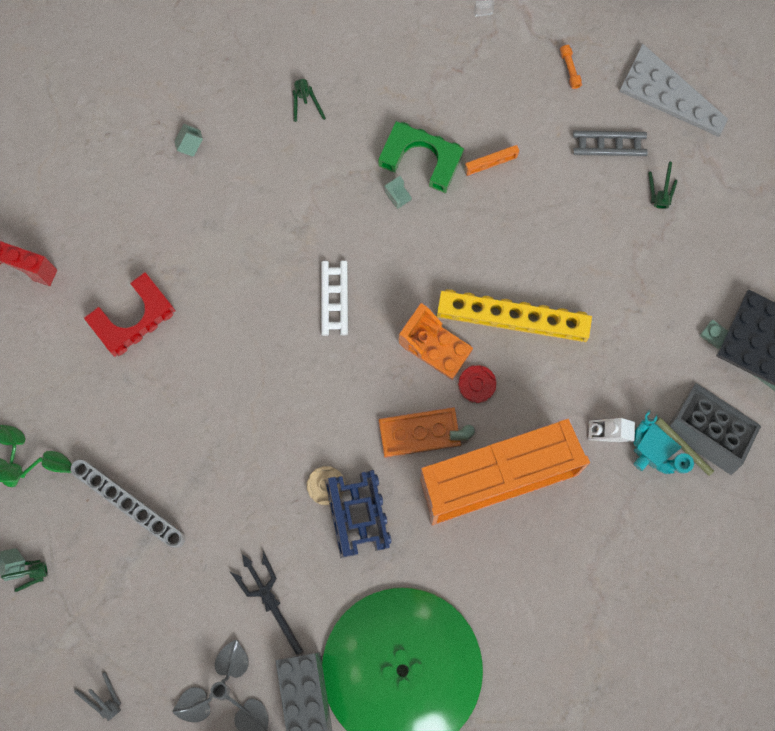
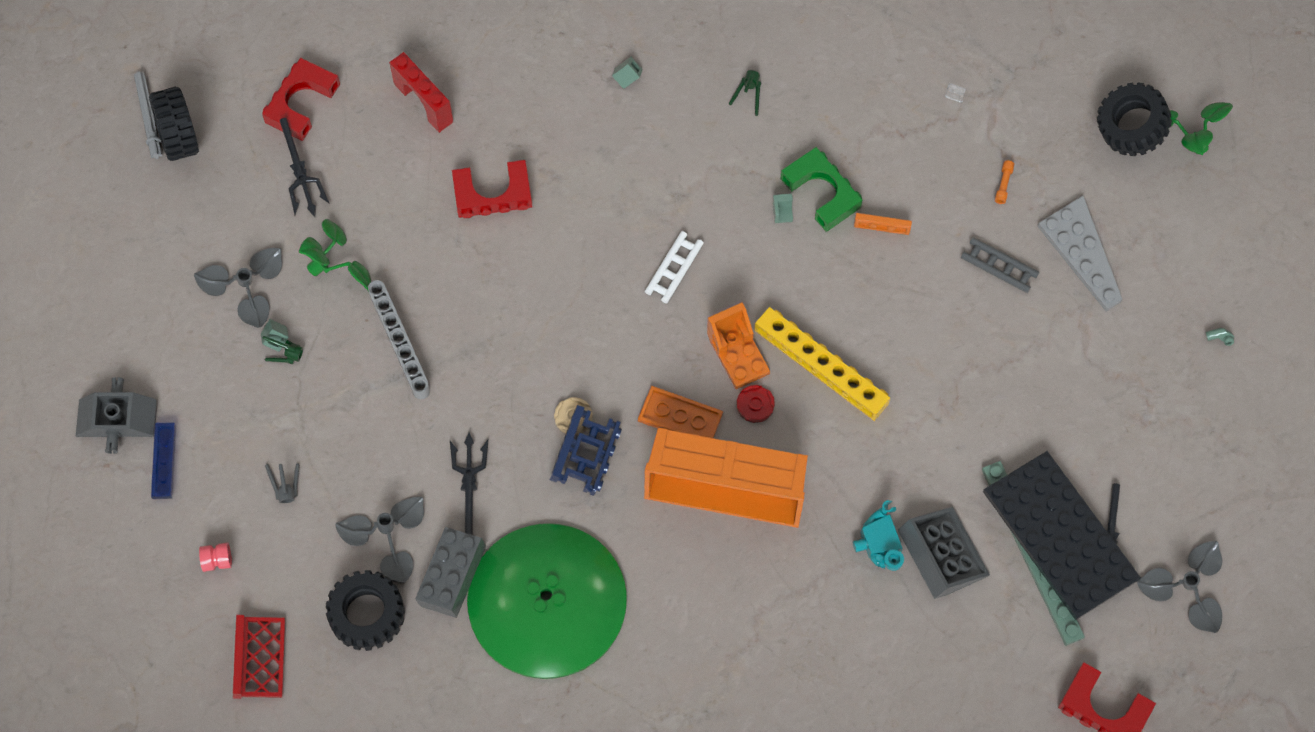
camera: 30 degrees right, 10 degrees down
(462, 435) = (721, 435): sand green arm -> none
(611, 430) = (850, 503): white slope -> none
(662, 198) = (1018, 336): dark green plant -> none
(685, 447) = (906, 551): olive bar -> none

